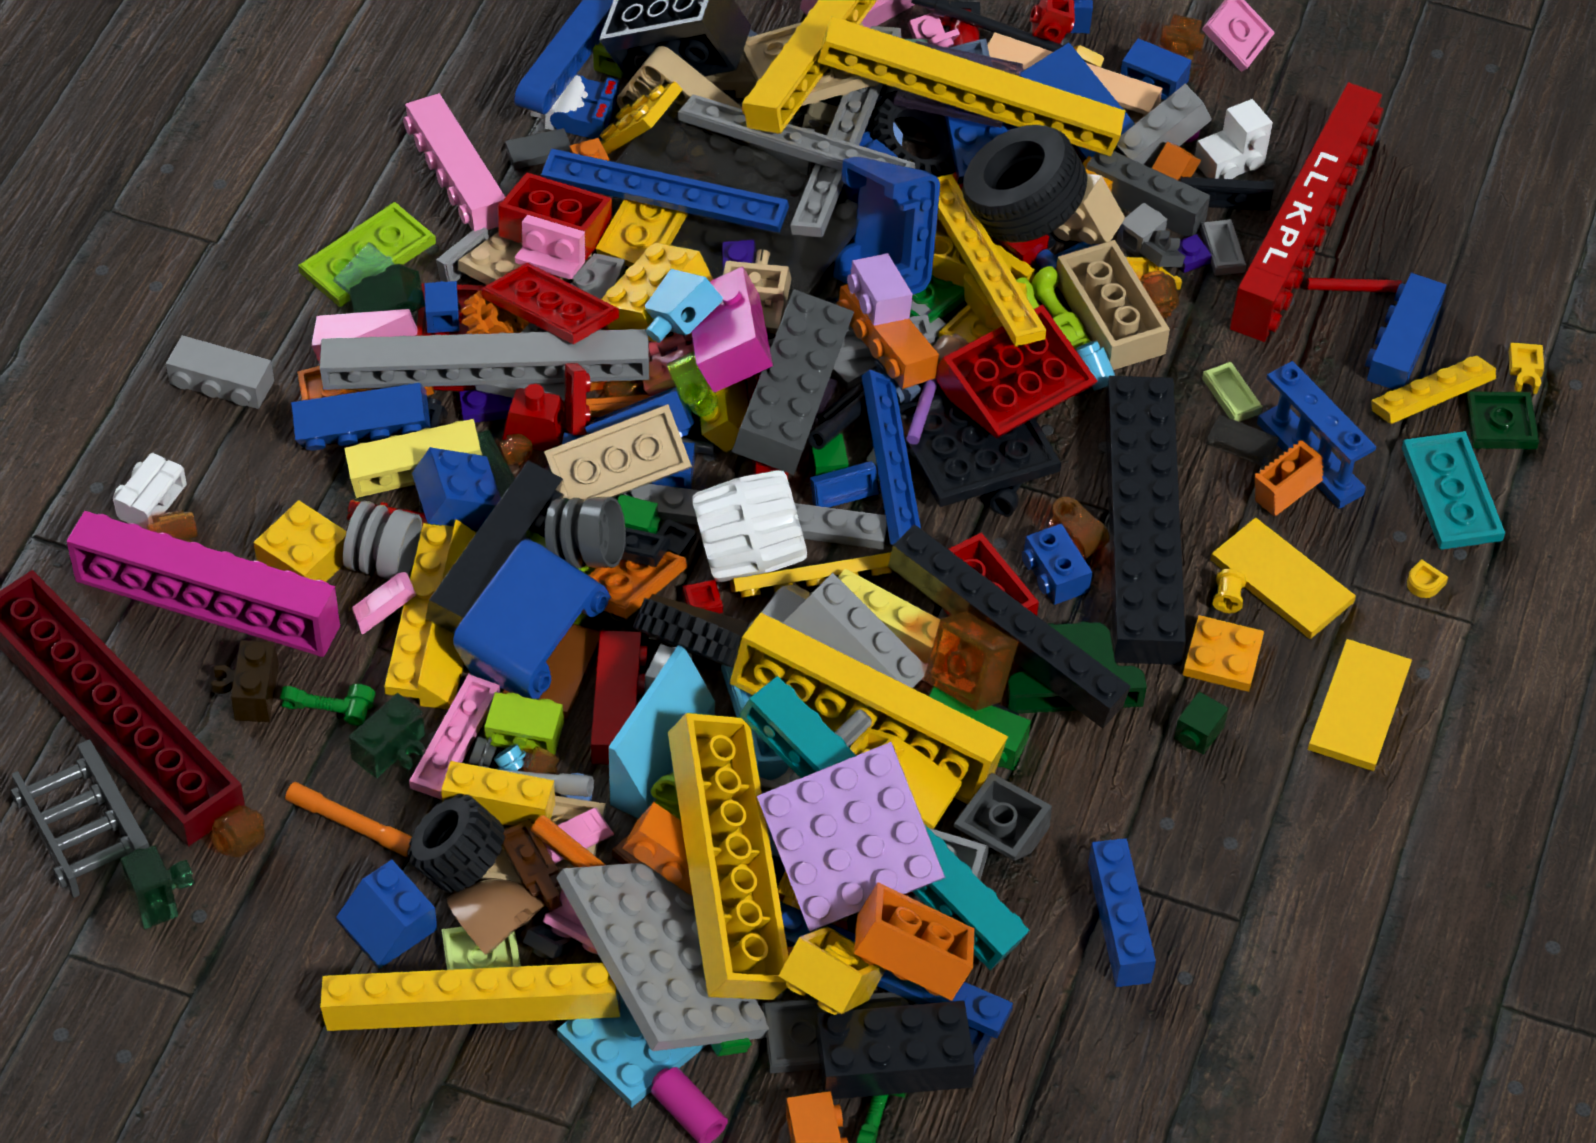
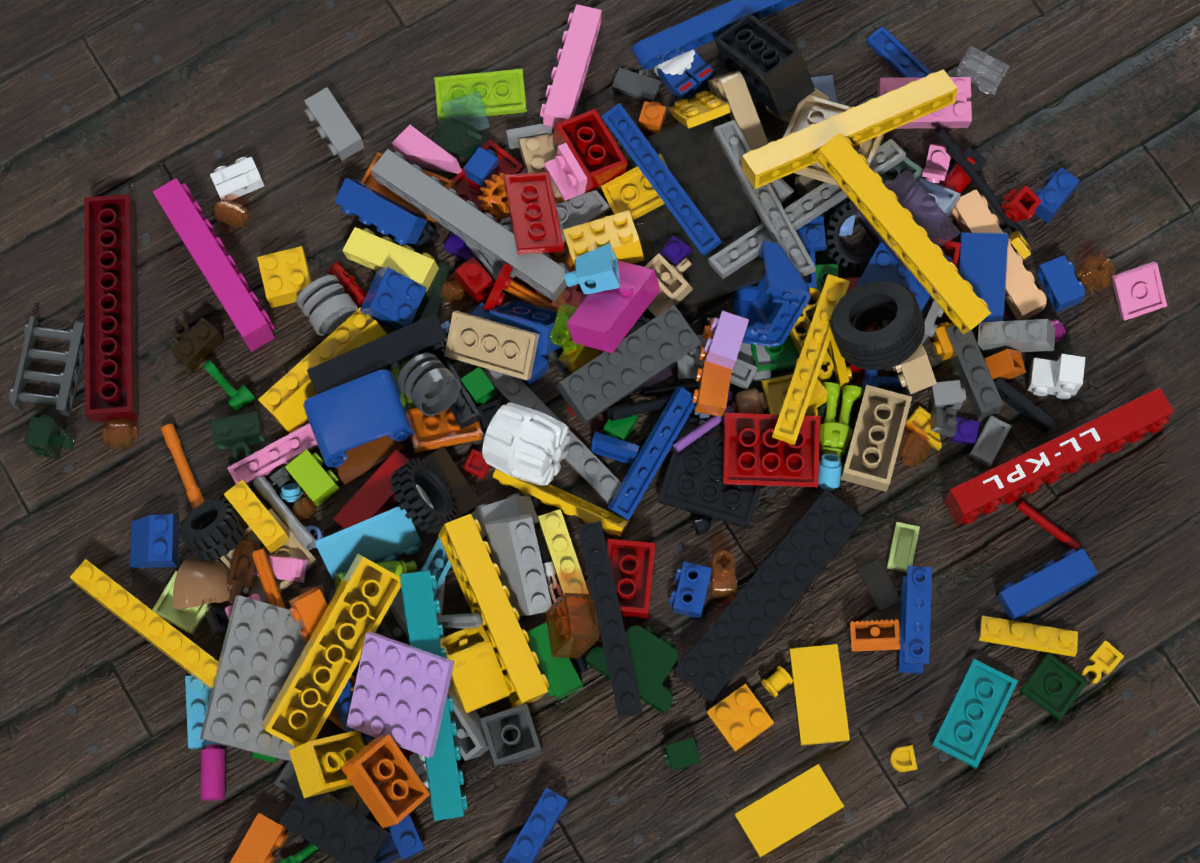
camera: 45 degrees right, 20 degrees up
(383, 601) = (300, 343): bright pink tile -> none

